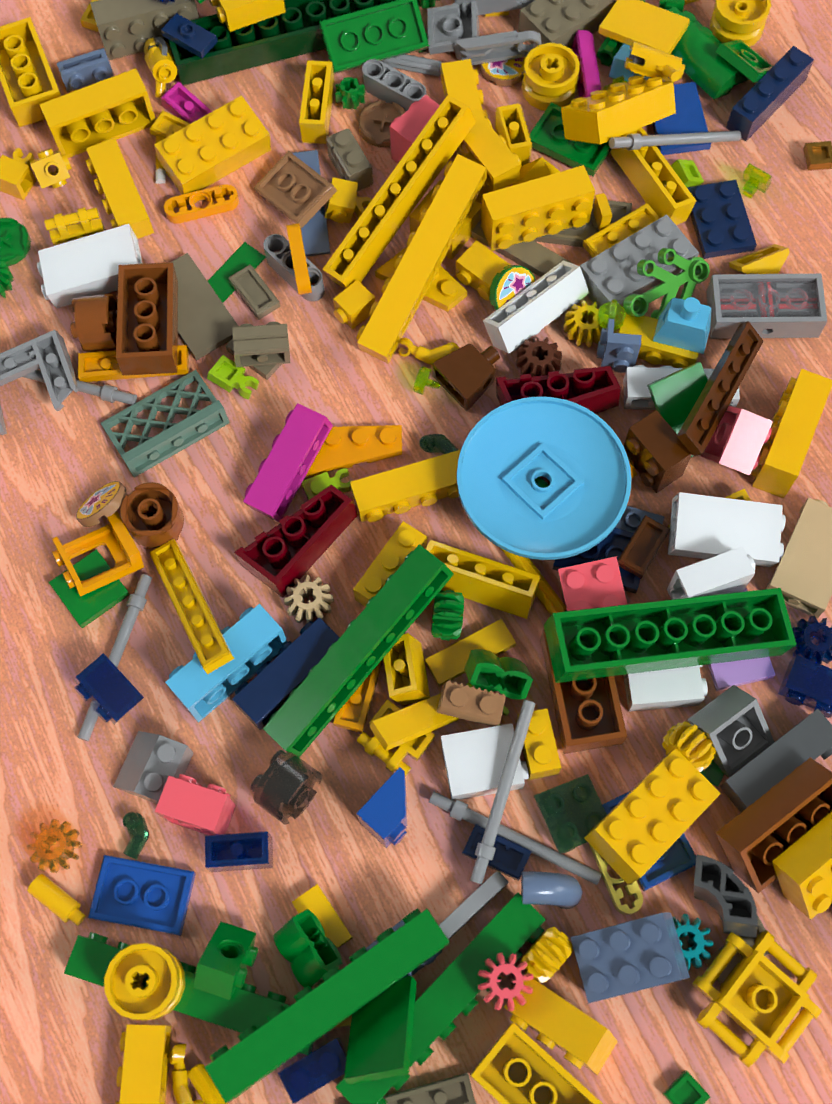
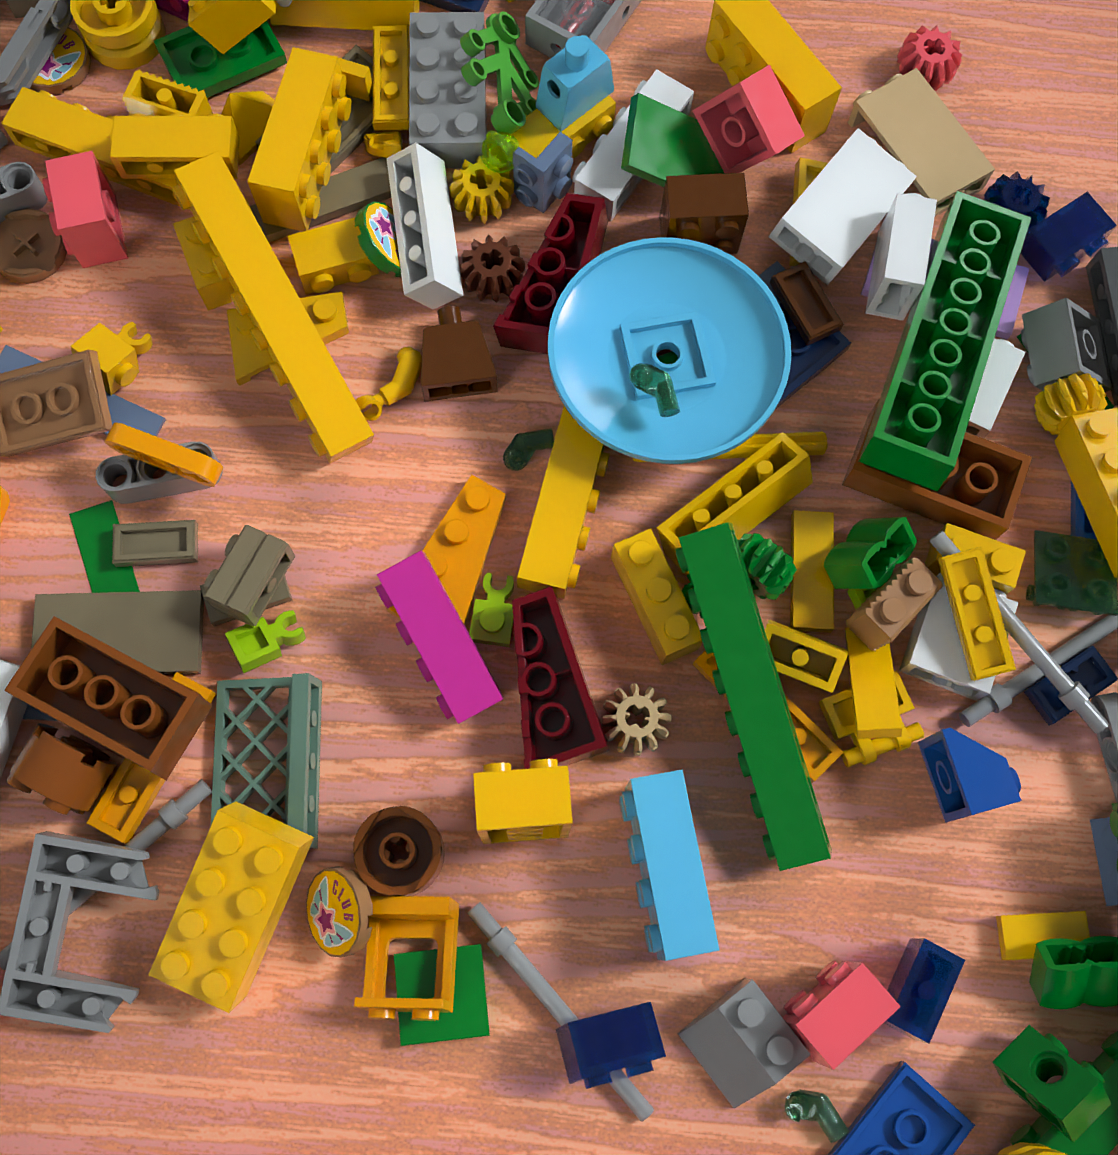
camera: 65 degrees left, 5 degrees up
(72, 446) = (231, 906): none -> yellow brick
(191, 606) = (571, 869): yellow tile -> none
(209, 552) = (522, 802): none -> yellow brick
(284, 674) = (718, 799): dark blue brick -> none
(285, 786) = (871, 883): clear smoke brick -> none
(349, 159) = (52, 313): dark tan brick -> none
(353, 304) = (267, 431): yellow brick -> none
(400, 193) = (165, 275): yellow brick -> none
(422, 381) = (430, 413): clear neon green tile -> none
(494, 754) = (976, 613): none -> yellow tile
(510, 480) = (658, 385): none -> clear green arm
(577, 255) = (383, 144): none -> yellow tile
(592, 585) = (833, 387): coral brick -> none
(720, 389) = (682, 96): reddish brown plate -> none

